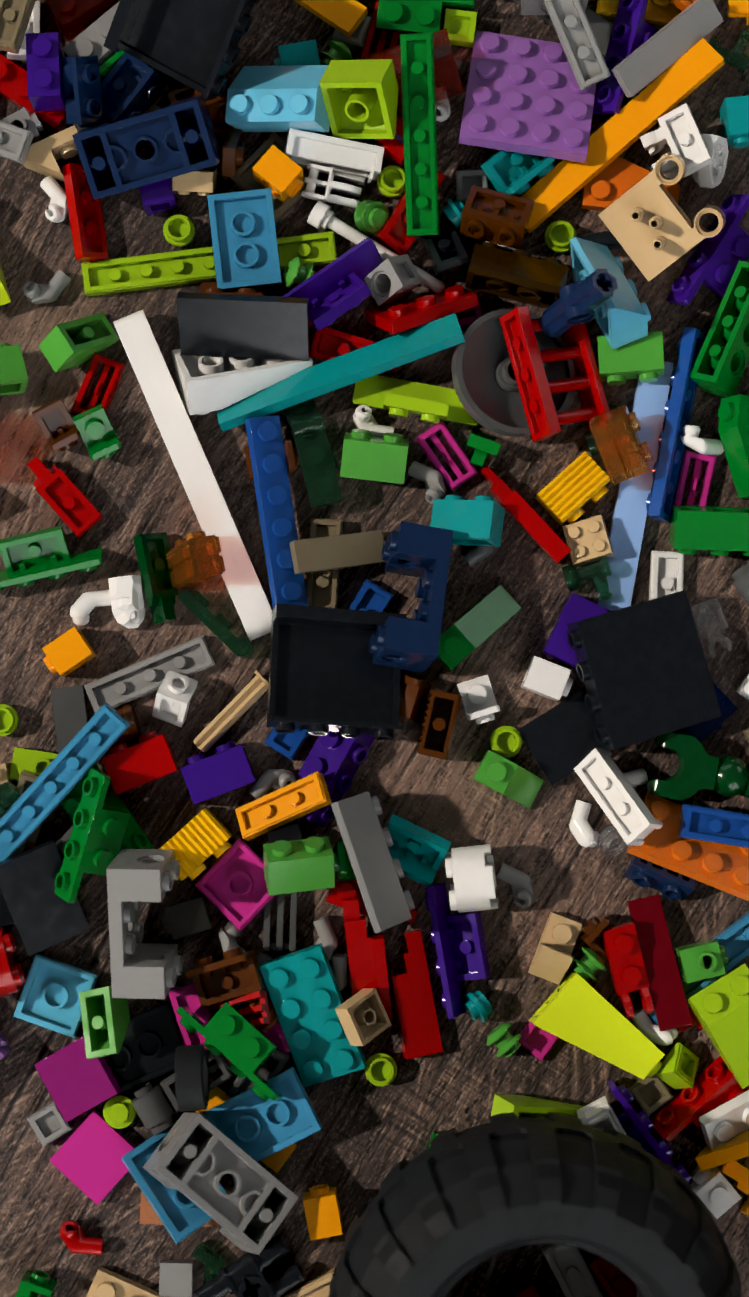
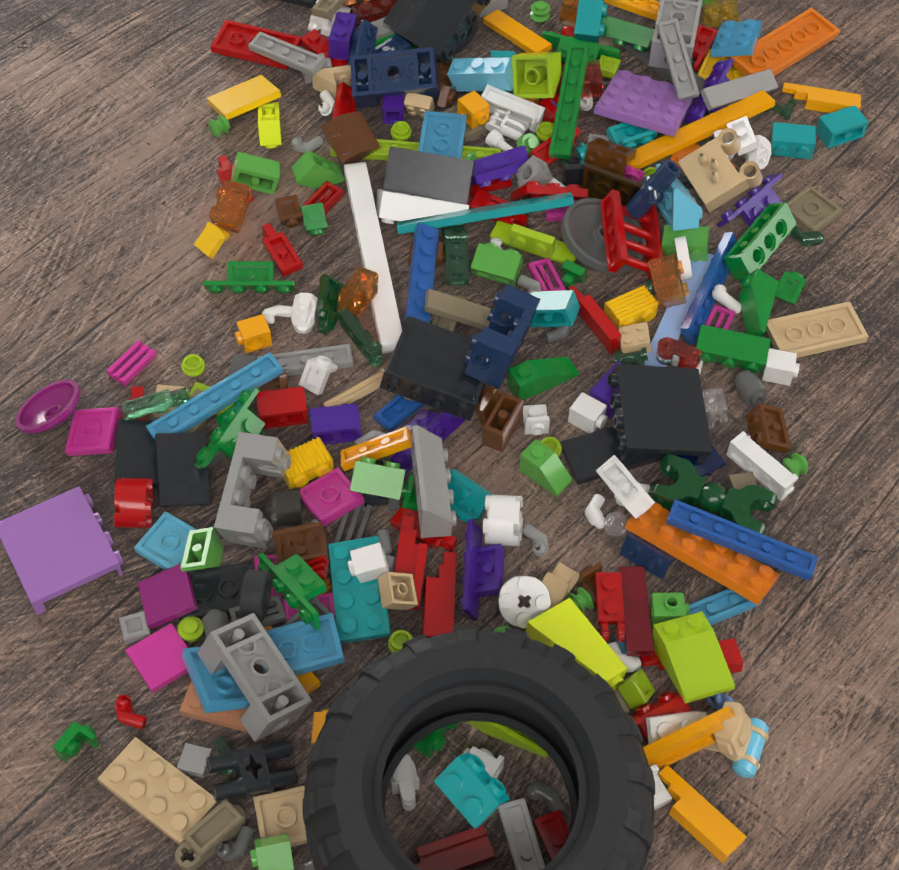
camera: 15 degrees right, 30 degrees down
(111, 277) = (350, 137): none -> reddish brown slope
(321, 999) = (368, 562): none -> white brick
(477, 1006) = (487, 612): teal plate -> none
(520, 1000) = (523, 586): none -> white plate
(536, 244) = (634, 173): none -> dark pink plate
(634, 393) = (683, 255): none -> white beam
(653, 560) = (678, 354): none -> clear red leg

